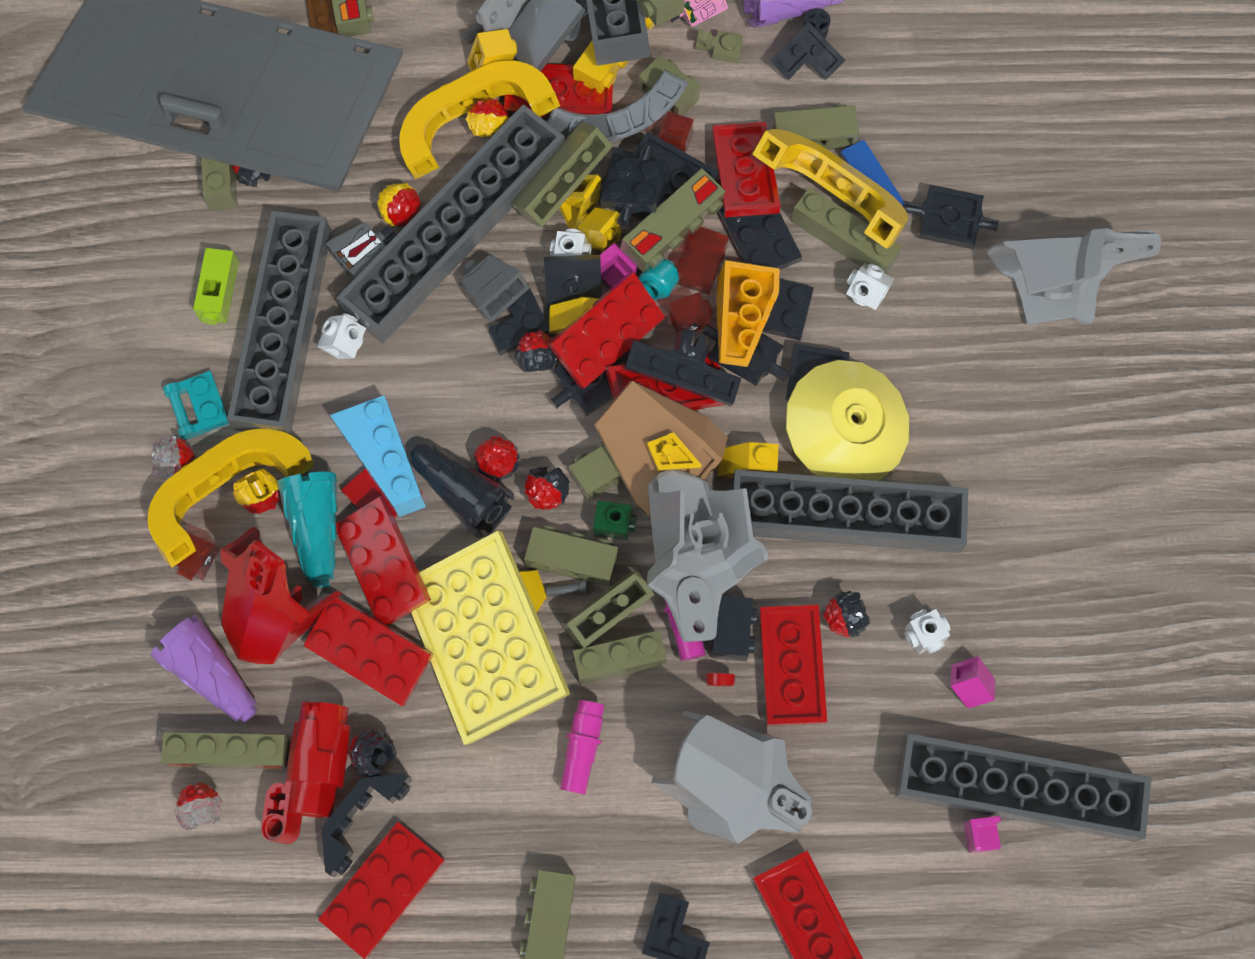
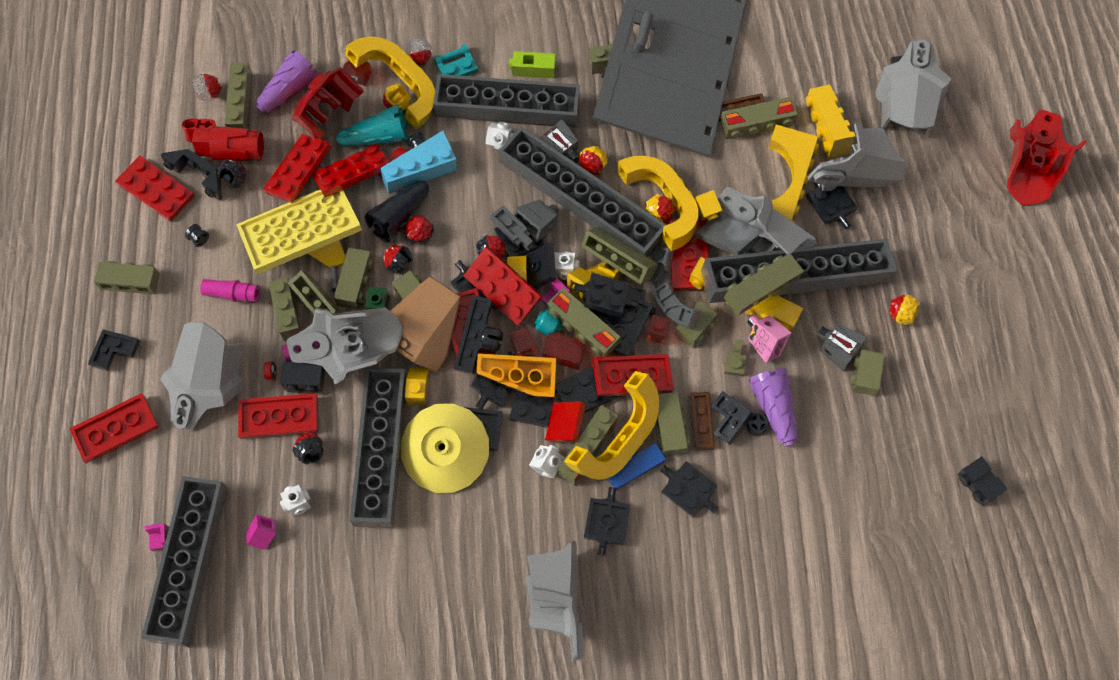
camera: 90 degrees right, 5 degrees down
(341, 461) = (415, 140): none -> black wheel
(479, 808) = (197, 235): none -> black wheel
(505, 319) = (512, 227): none -> dark grey hinge
(671, 454) = (410, 324): yellow piece -> none
(806, 93) = (701, 421): none -> reddish brown tile
(814, 258) = (565, 422): none -> red tile
(904, 115) = (689, 489): none -> black plate

